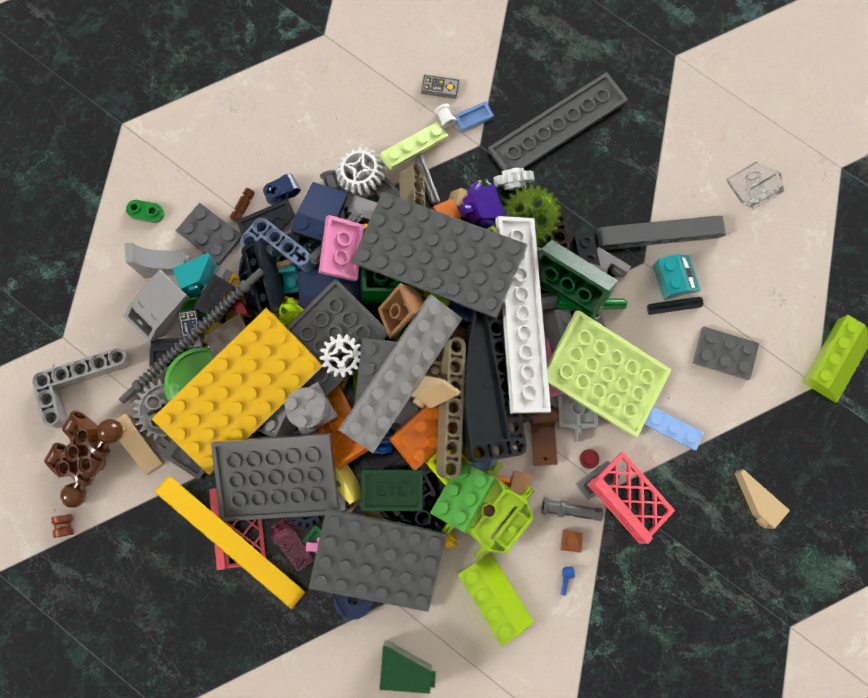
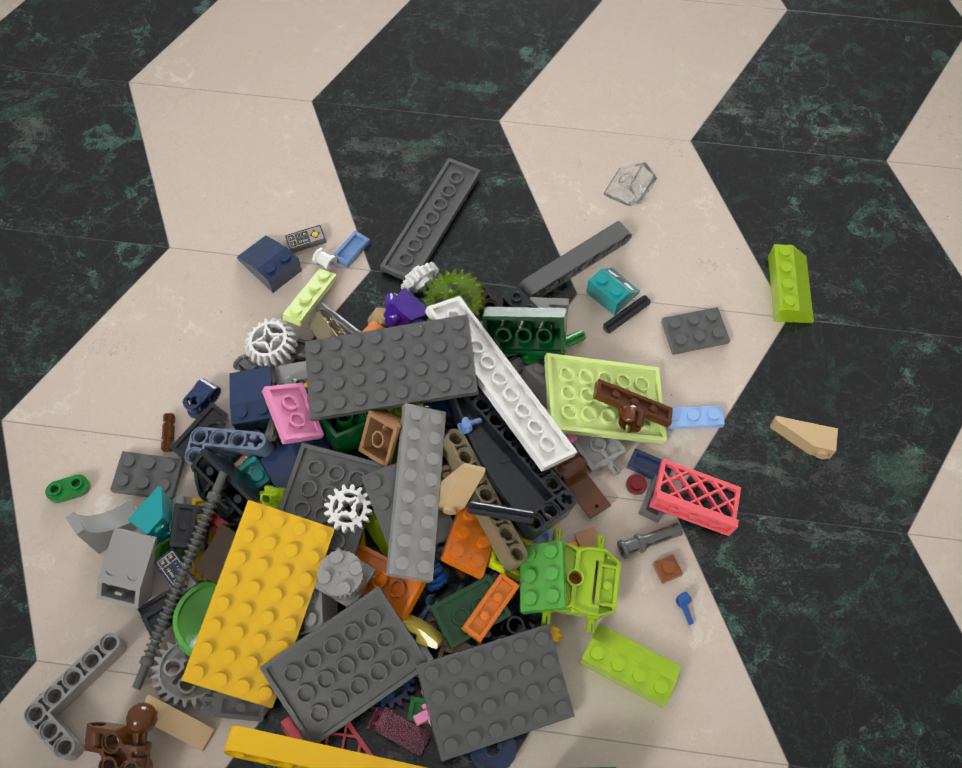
camera: 30 degrees left, 15 degrees down
(368, 462) = (429, 602): none -> medium blue hand
(398, 94) = (270, 263): none -> dark blue slope
(408, 496) = (490, 607): none -> orange tile
(456, 430) = (501, 512): none -> black axle
(469, 341) = (466, 425): none -> medium blue hand
(608, 446) = (645, 464): none -> dark blue tile
(624, 395) = (632, 406): none -> reddish brown plate

